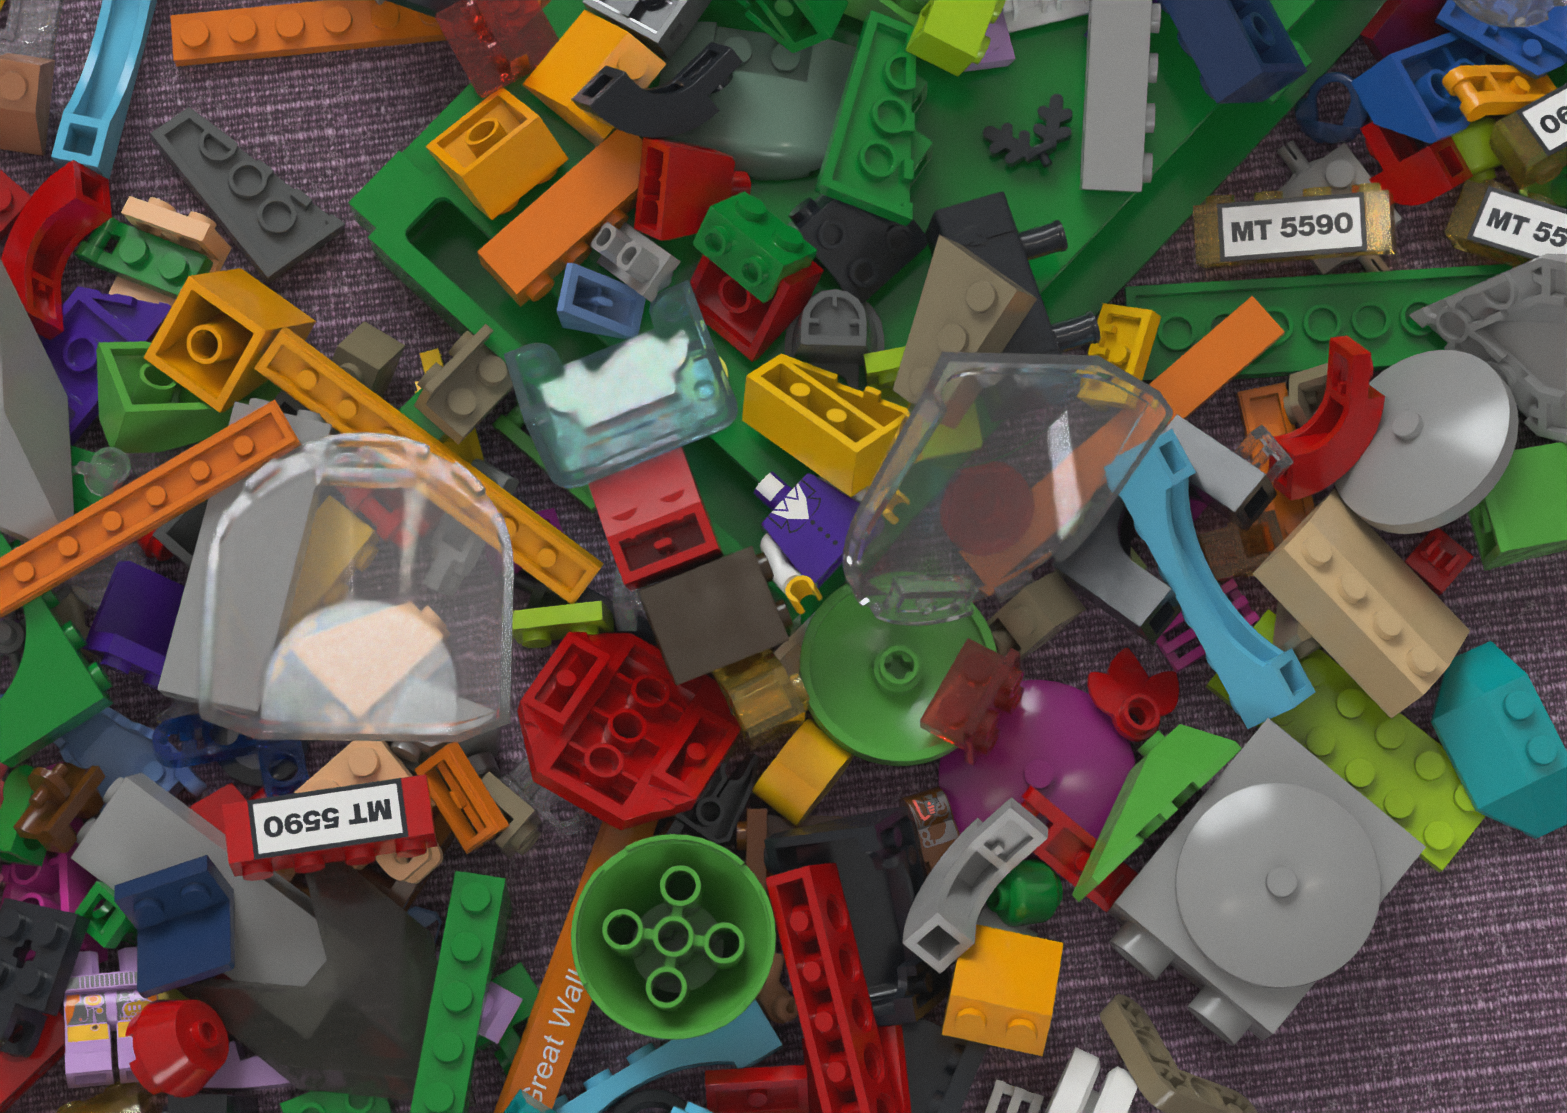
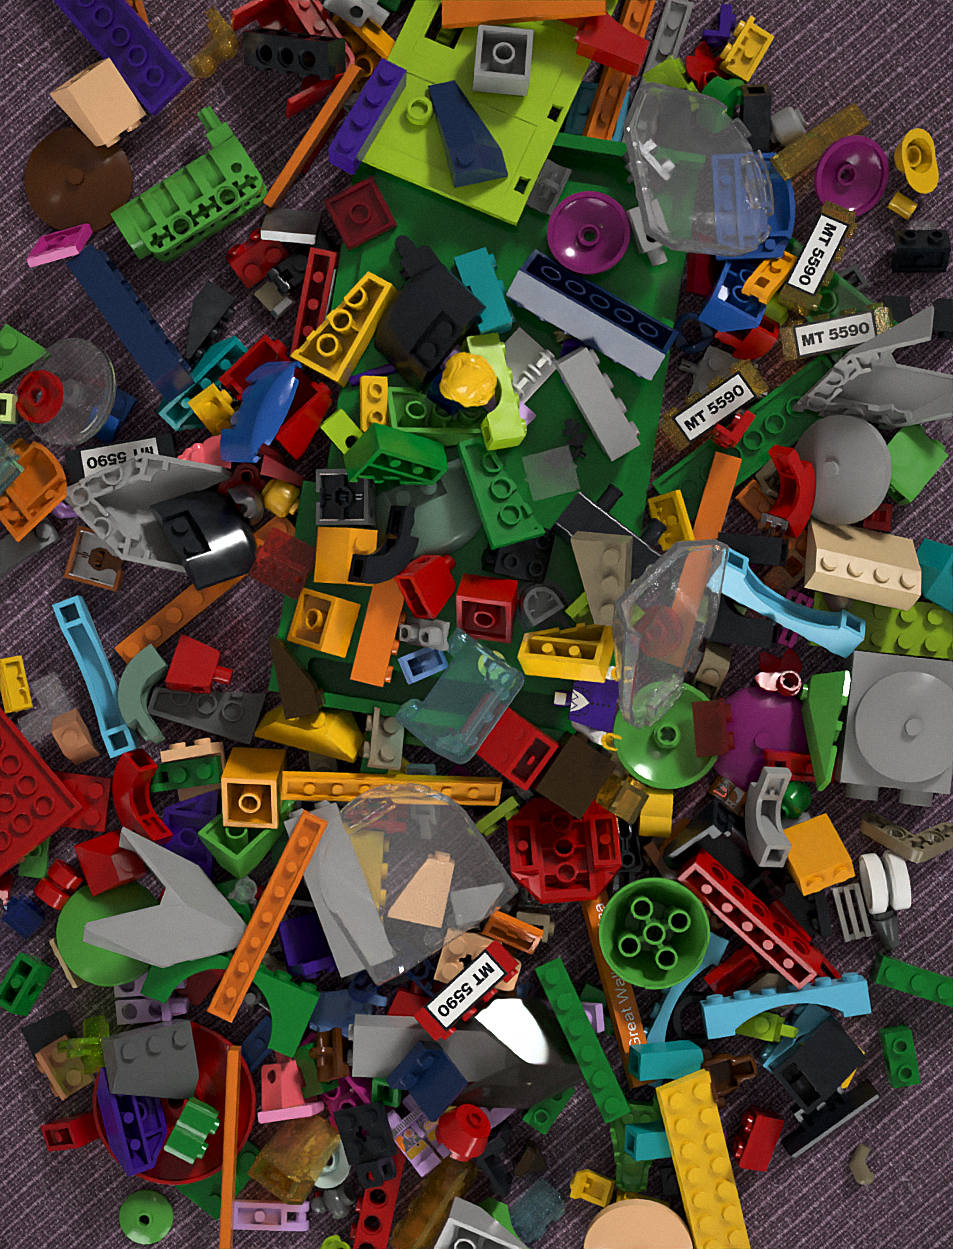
camera: 40 degrees left, 10 degrees up
(159, 83) = (133, 690): none -> sand green arch
(267, 115) = (196, 667): none -> red torso
(375, 311) = (328, 733): none -> yellow wedge
(389, 214) = (296, 686): none -> dark brown slope
(752, 244) = (479, 592): green bracket -> none
(980, 154) = (551, 473): none -> clear piece
(1308, 281) = (731, 436): none -> red bracket

